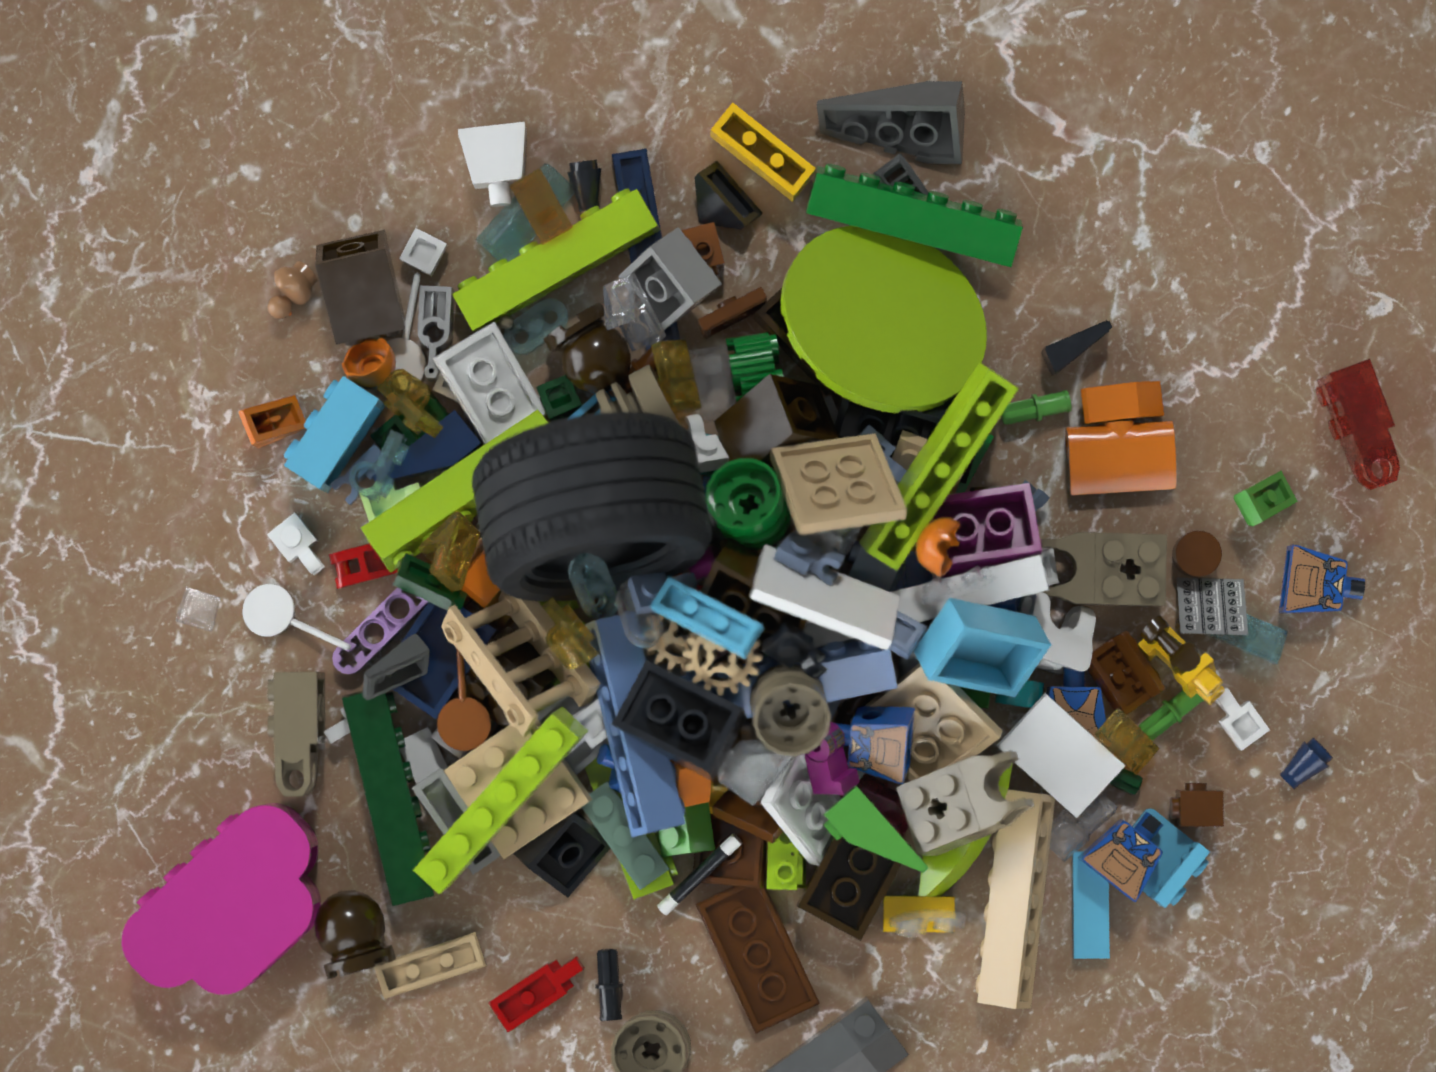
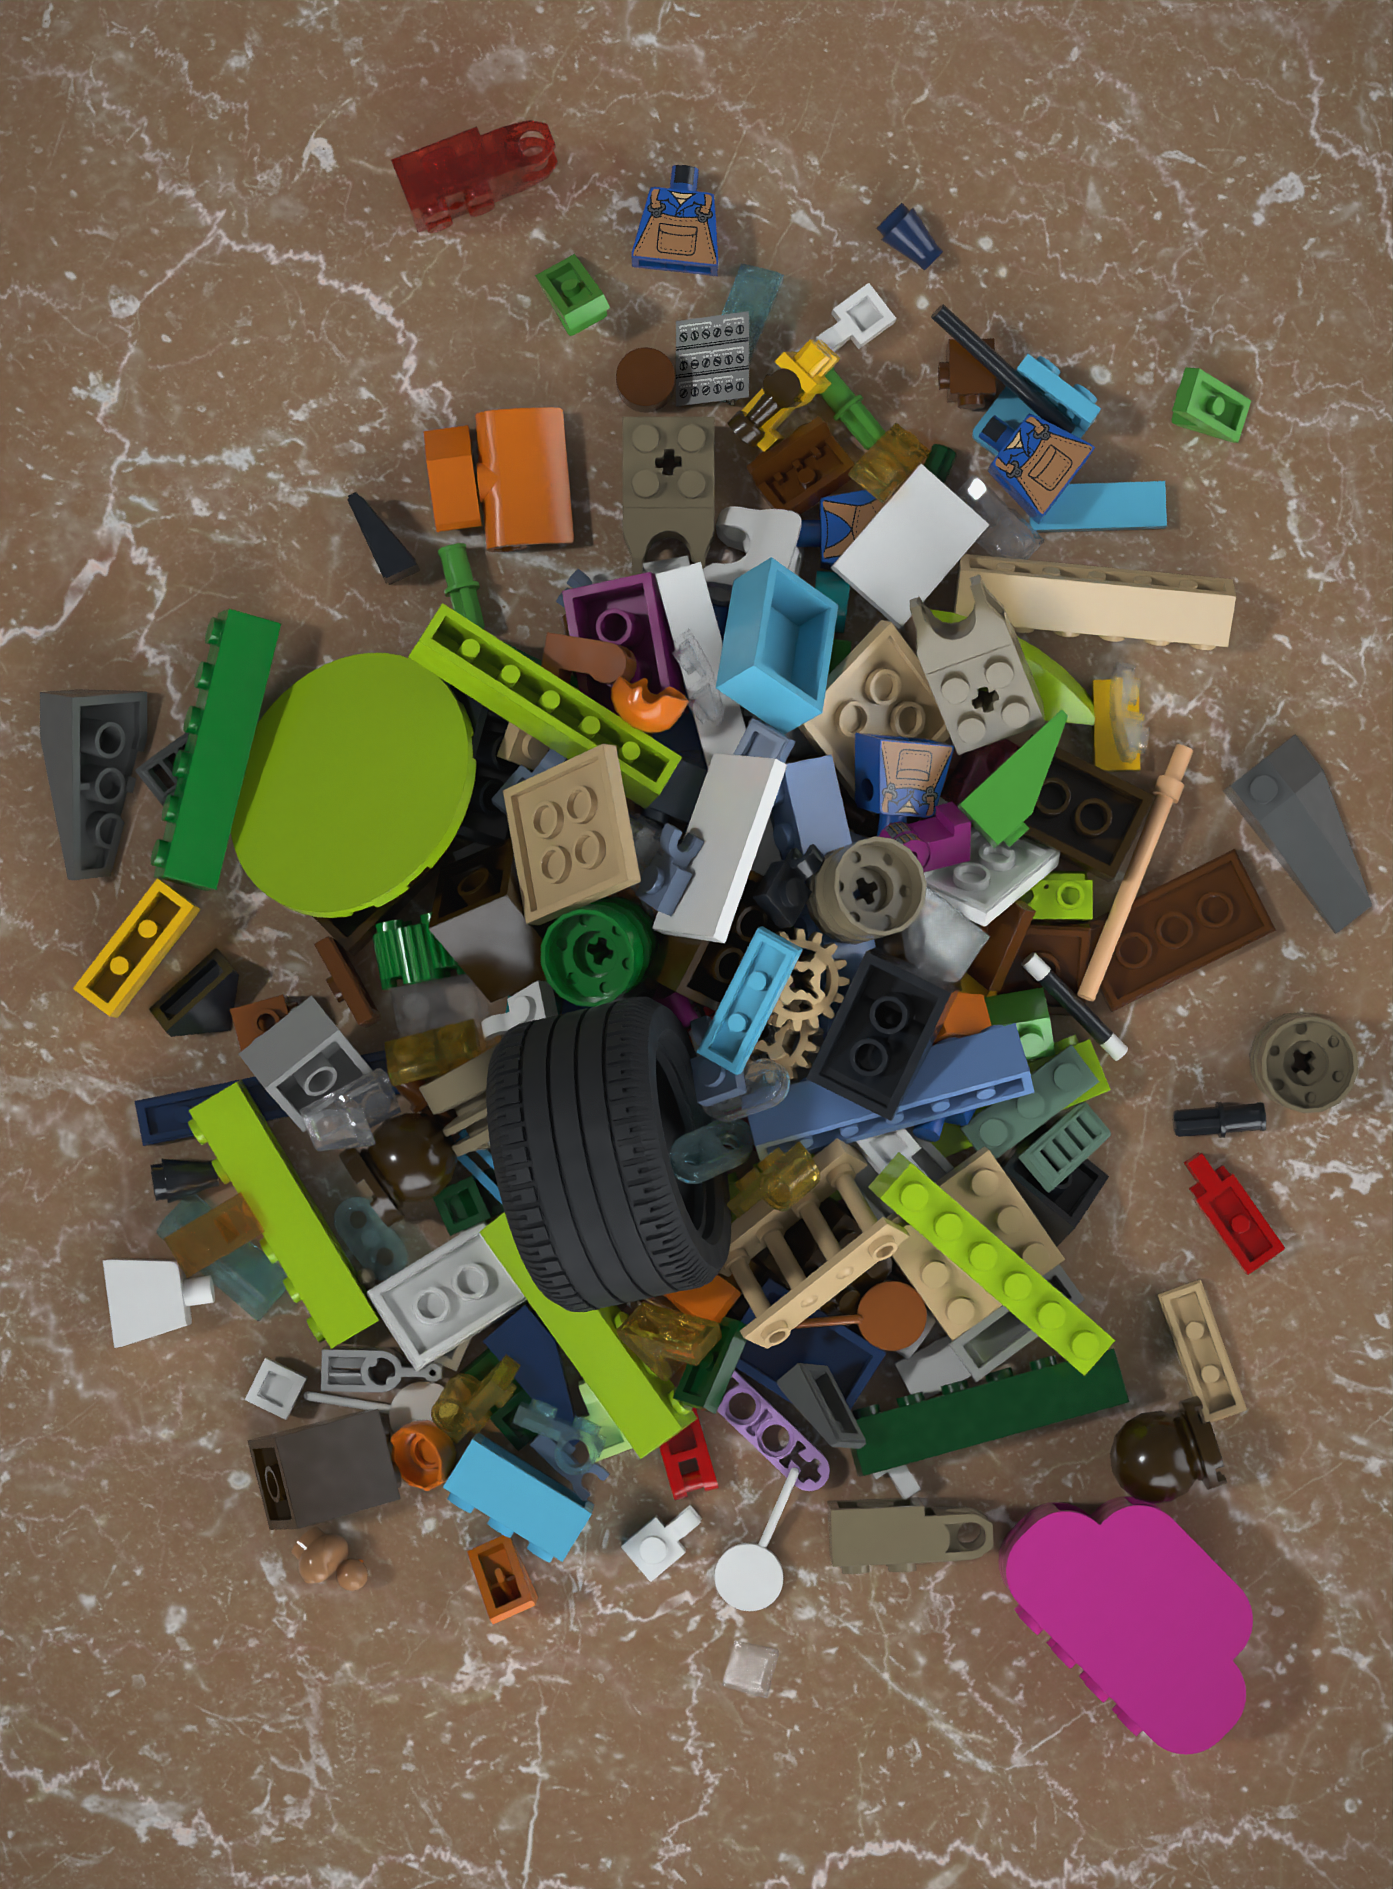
camera: 90 degrees left, 0 degrees up
(602, 879) = (1066, 1145): none -> sand green slope
(865, 952) = (1167, 791): none -> light nougat bar
(974, 509) = (587, 656): none -> dark orange leg
(1167, 995) = (1209, 406): none -> bright green slope
(1200, 828) = (1000, 368): none -> black bar

